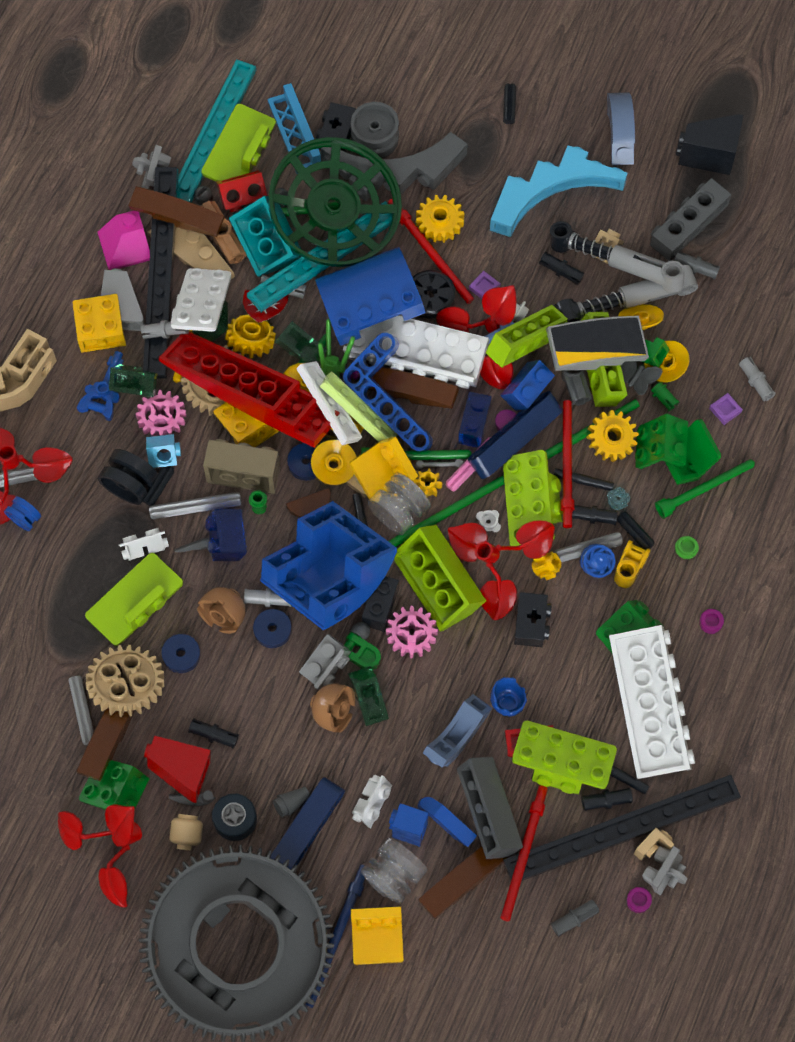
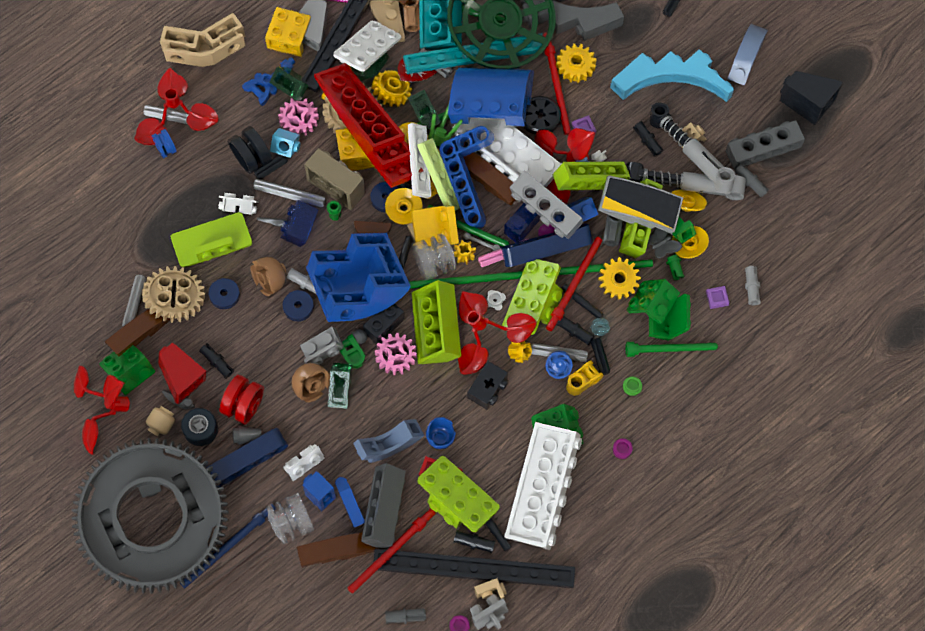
camera: 25 degrees right, 0 degrees up
(160, 329) = (327, 54): light grey pin -> none
(268, 763) = (241, 399): none -> red wheel
(377, 935) = (256, 559): yellow bracket -> none
(464, 374) = (527, 183): none -> light grey brick

